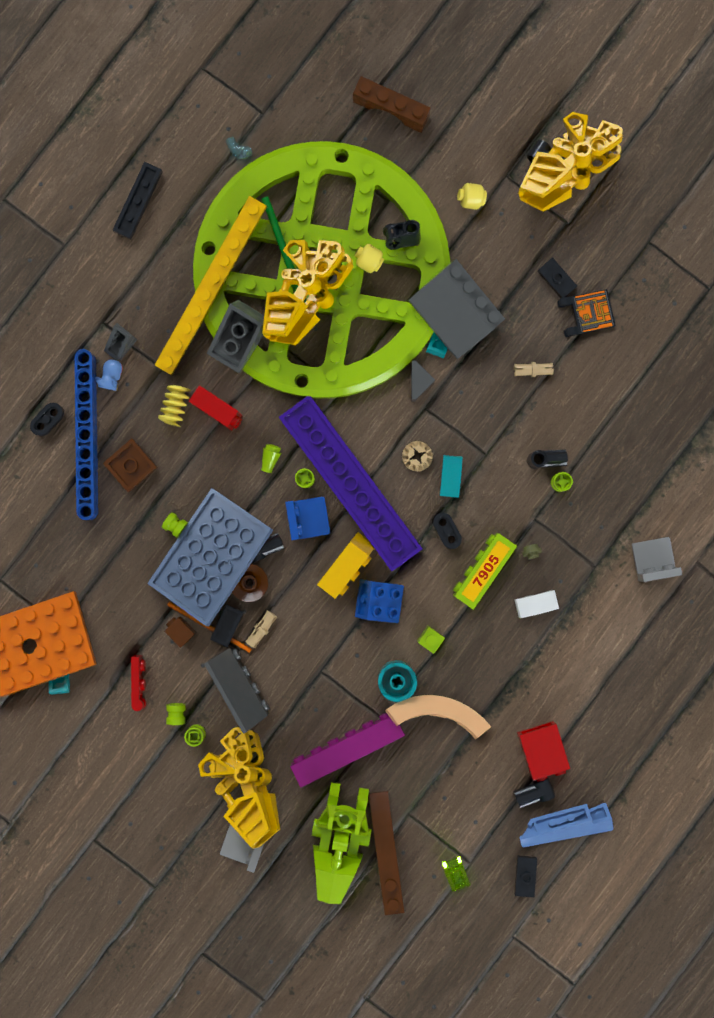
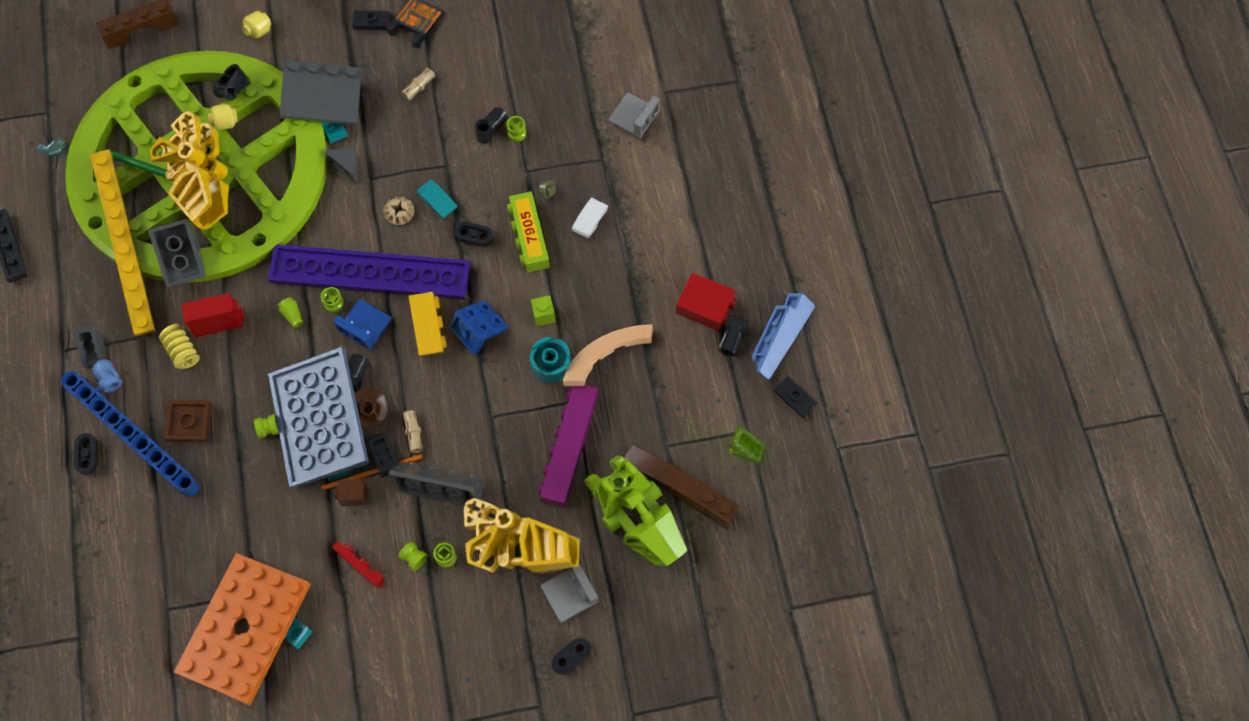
camera: 55 degrees left, 20 degrees down
(203, 880) = (571, 656): none -> black plate

